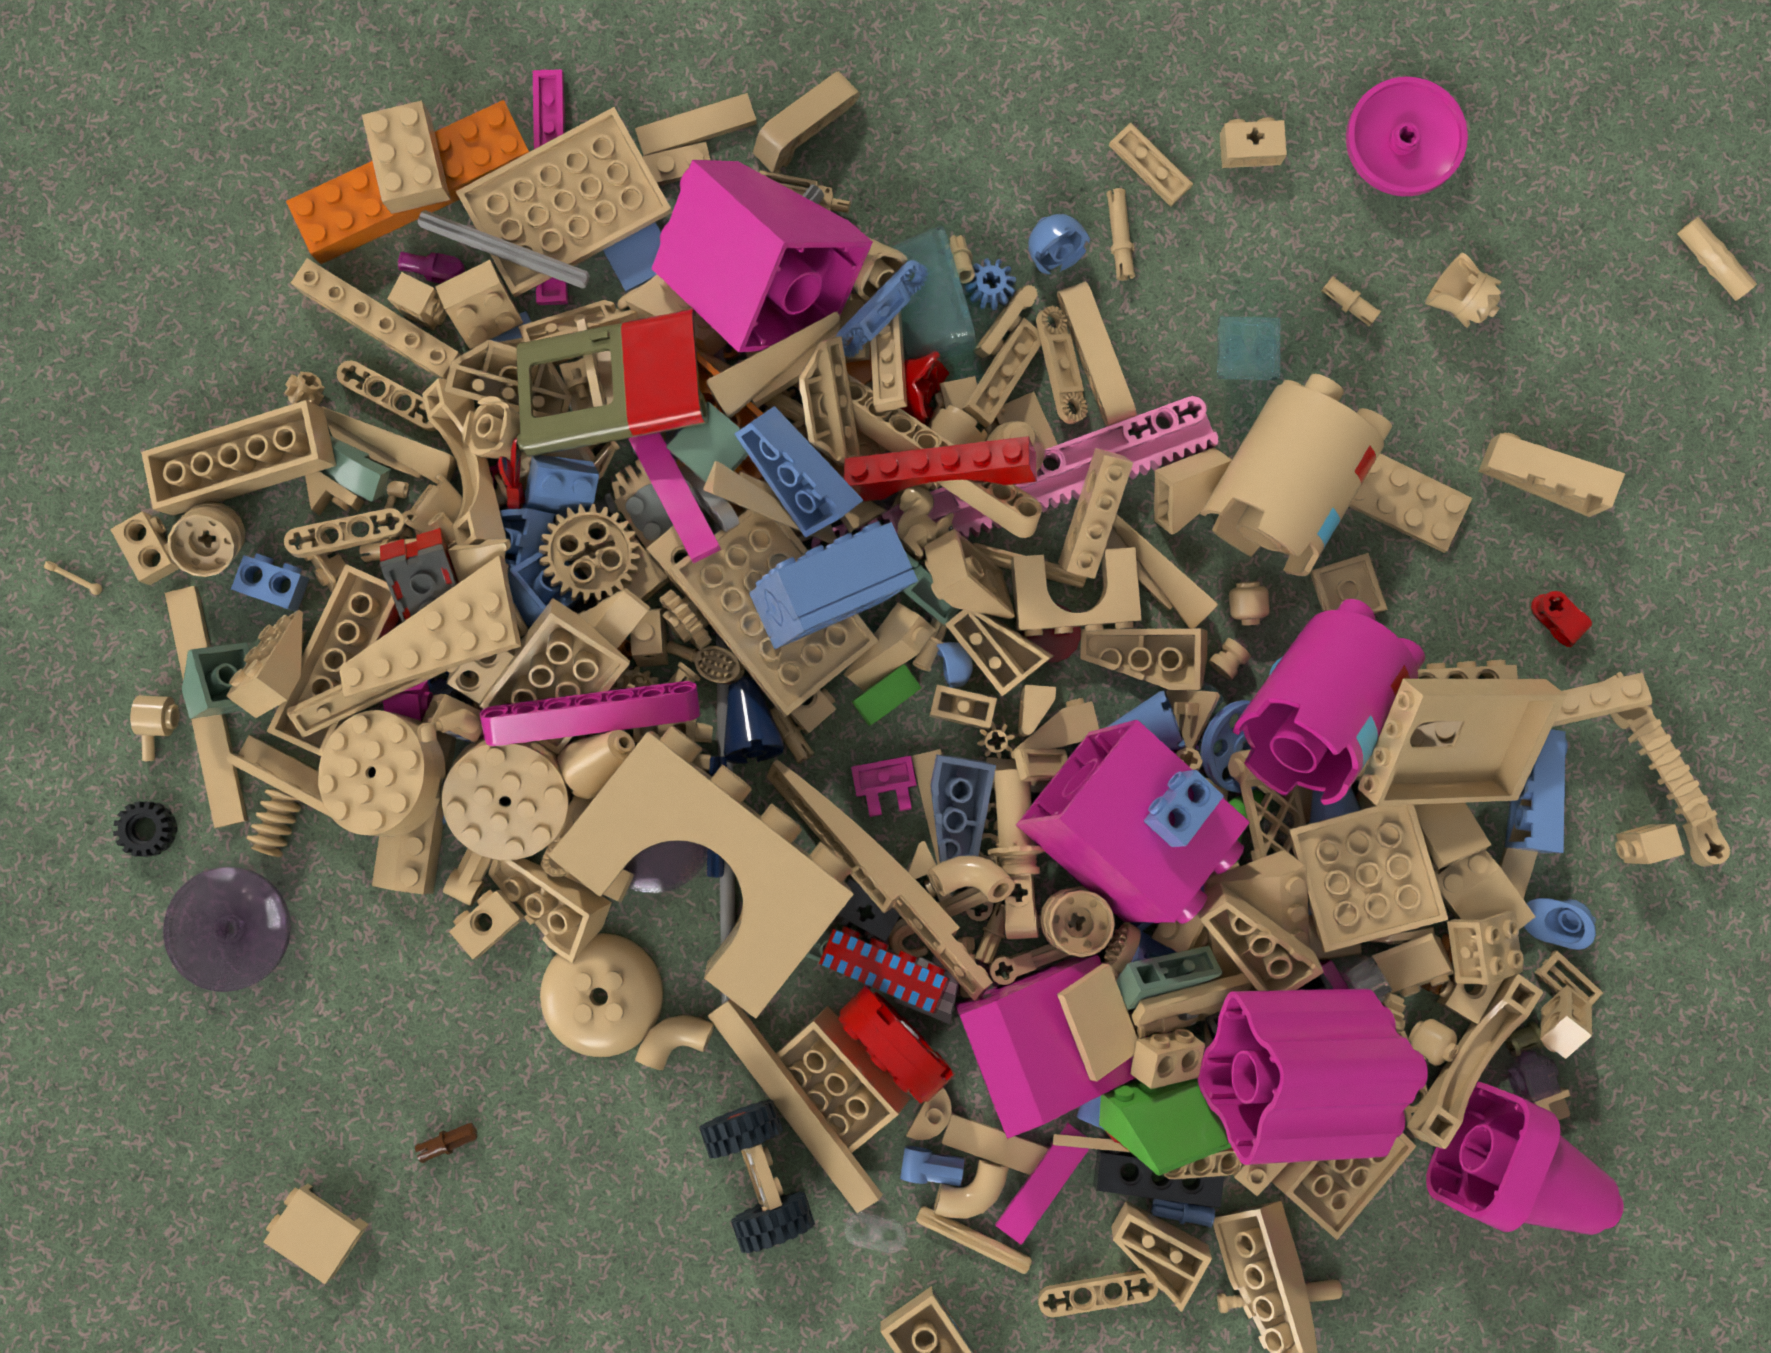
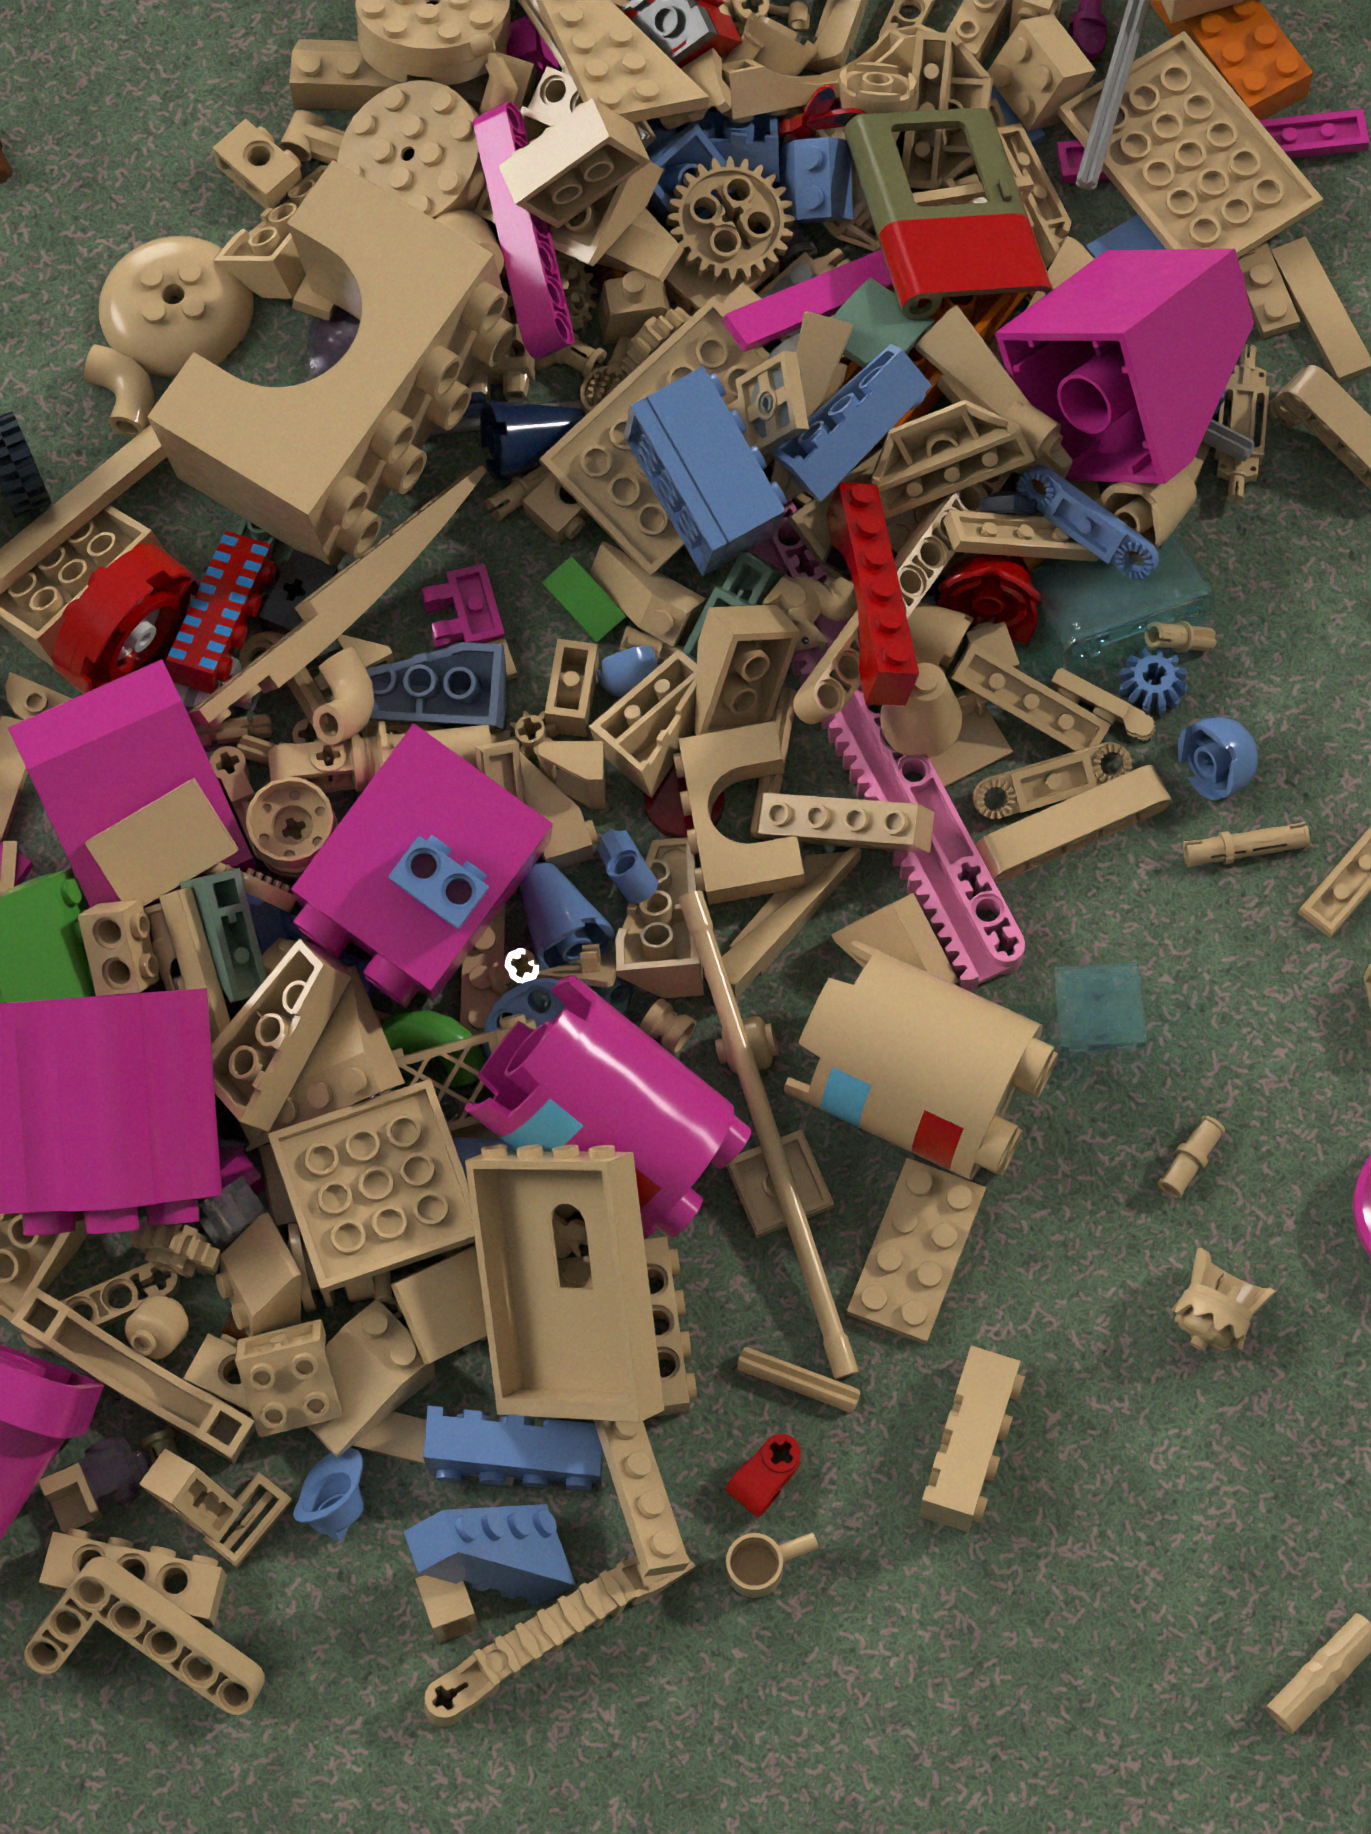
camera: 90 degrees right, 15 degrees down
(554, 664) = (574, 163): none -> tan brick
(775, 531) = (772, 402): none -> tan piece
(812, 333) = (1037, 427): none -> tan brick
(863, 365) = (1008, 503): none -> black tile
(1107, 678) = (627, 866): none -> medium blue piece
(1177, 624) = (834, 1339): none -> tan piece
(1492, 589) = (798, 1379): none -> tan axle
(1625, 1057) = (199, 1598): none -> tan brick
(1626, 808) = (495, 1549): none -> medium blue wedge
(1629, 627) = (757, 1561): none -> tan piece
(1658, 1056) = (146, 1635): none -> tan beam

